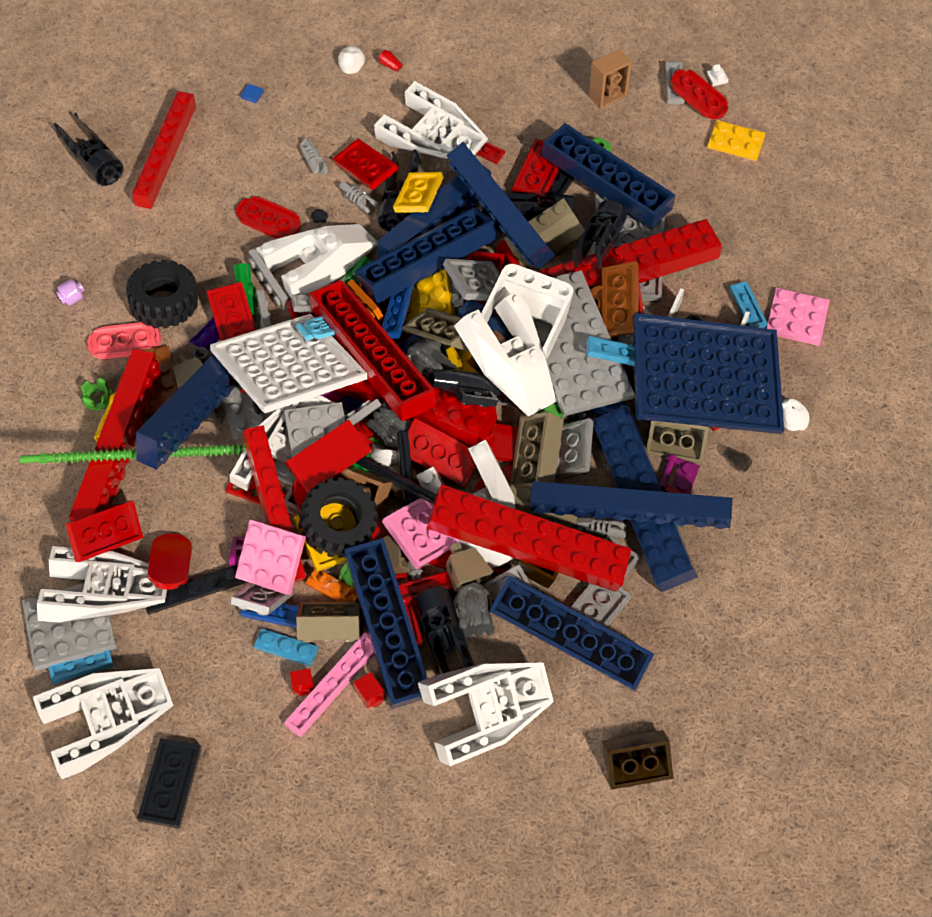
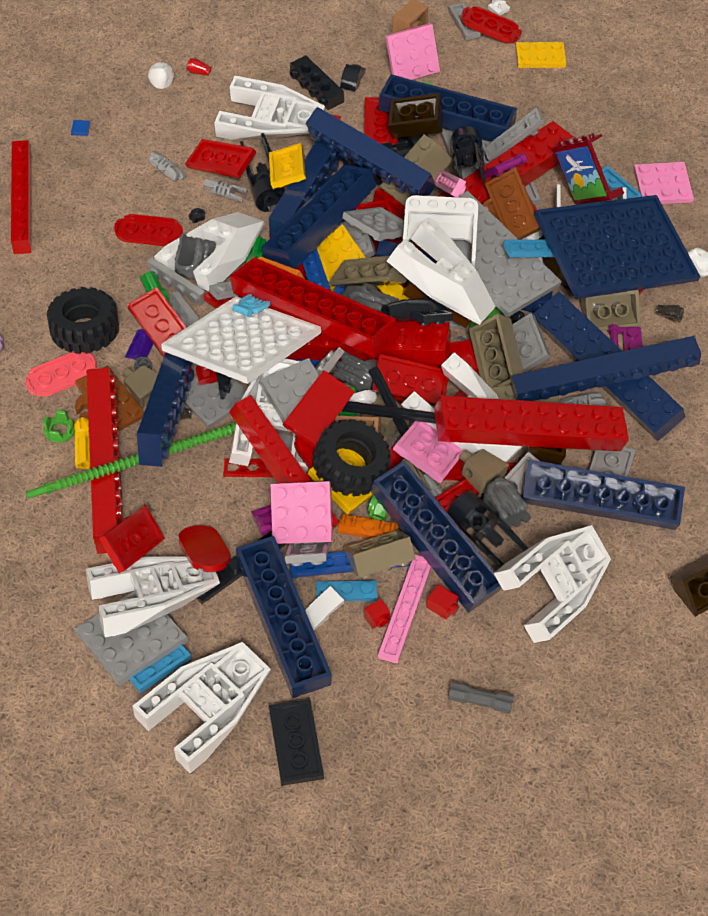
camera: 20 degrees left, 5 degrees down
(210, 655) = (283, 617): none -> dark blue brick
(253, 657) = (323, 606): none -> white slope
(291, 256) = (191, 254): none -> dark grey piece
(374, 808) = (466, 694): none -> dark grey axle
(496, 109) = (316, 82): none -> black brick
(534, 111) = (352, 76): none -> black brick
(562, 260) = (450, 183): none -> bright pink plate
(570, 174) = (416, 115): none -> dark brown slope
(601, 105) = (413, 52): none -> bright pink plate
(634, 255) = (498, 170): none -> magenta plate
(671, 218) = (515, 134): none -> light grey hinge
(705, 284) = (583, 170): none -> panel

